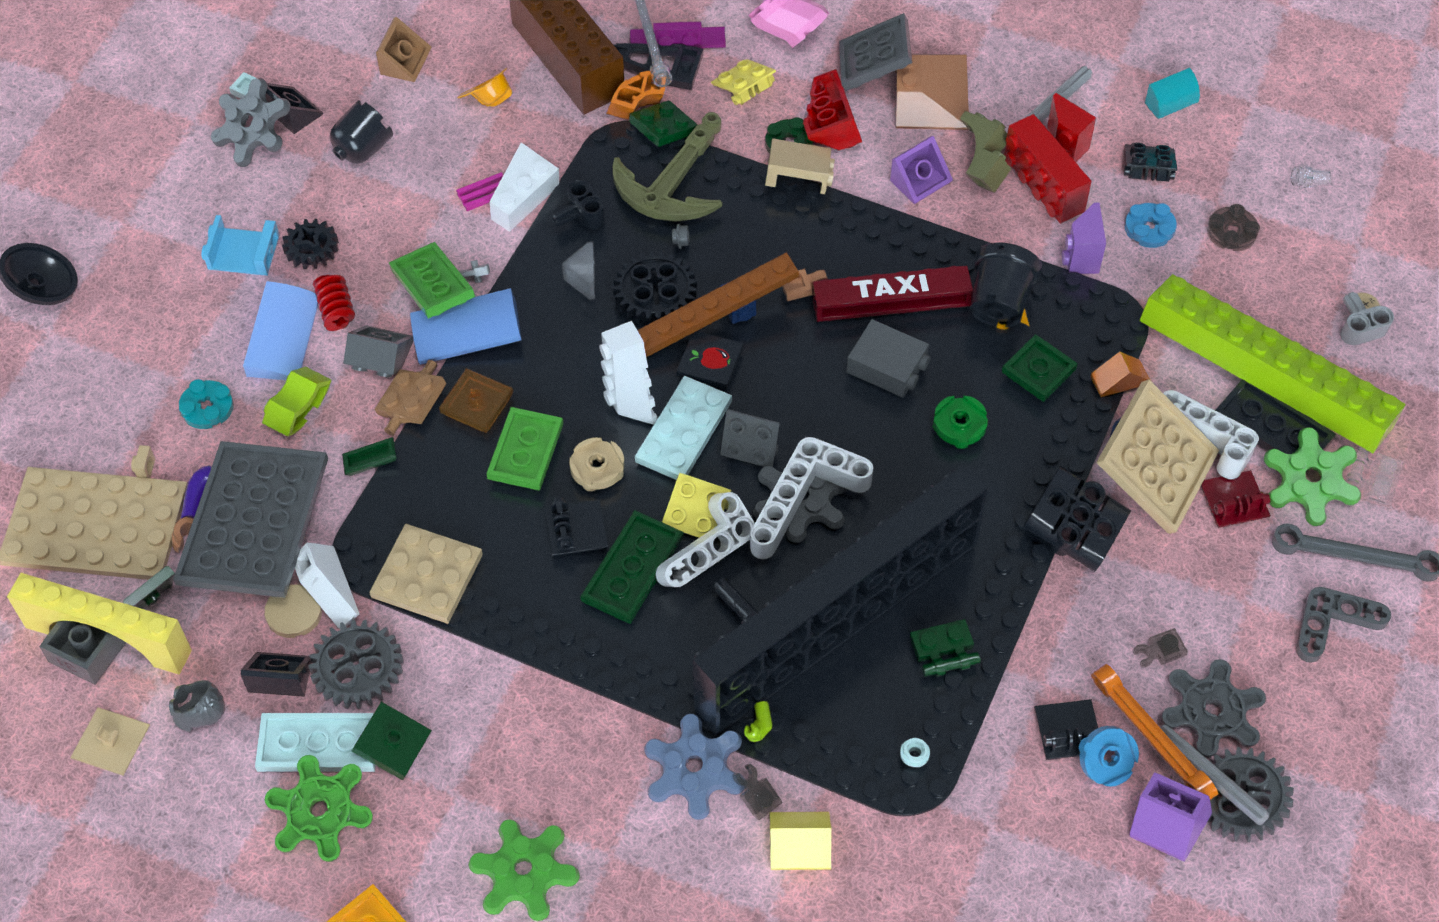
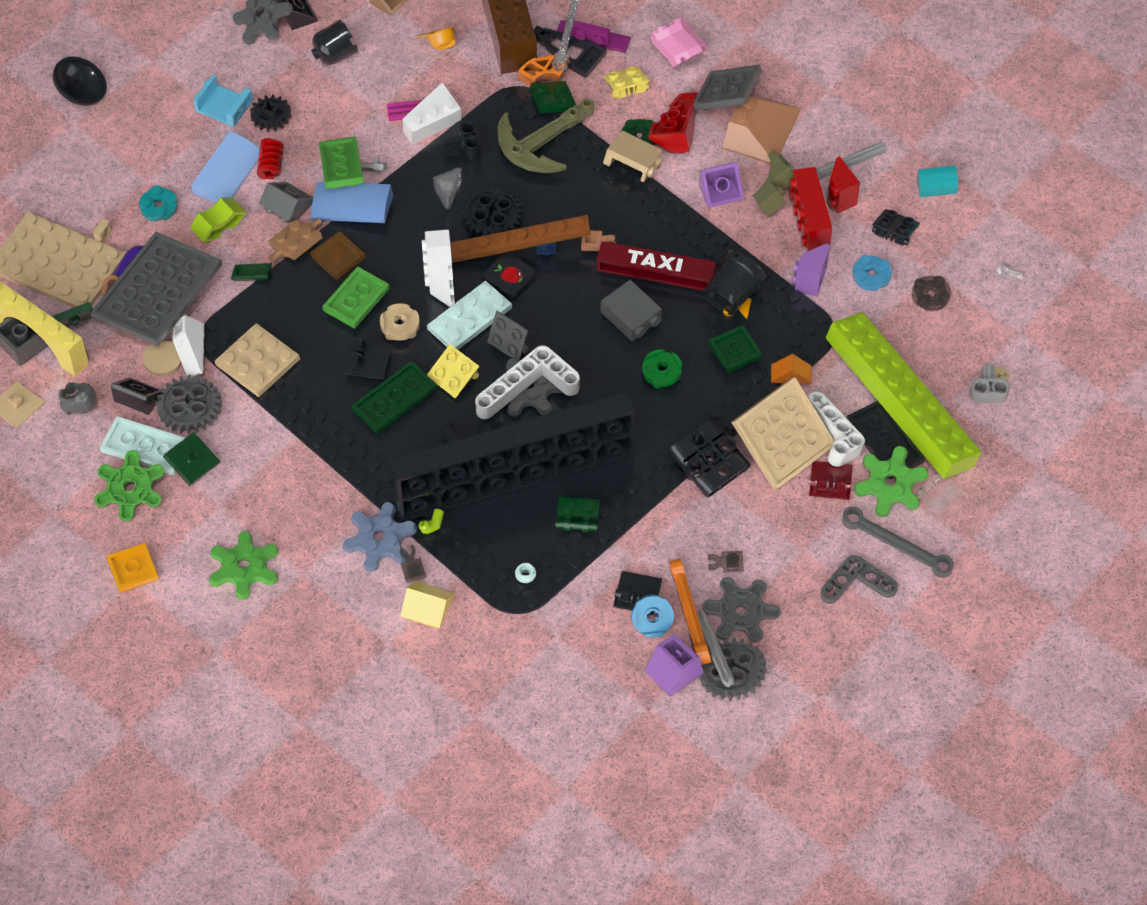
camera: 20 degrees right, 0 degrees up
(681, 236) = (527, 182): dark grey plate -> none
(704, 546) = (444, 397): white beam -> none

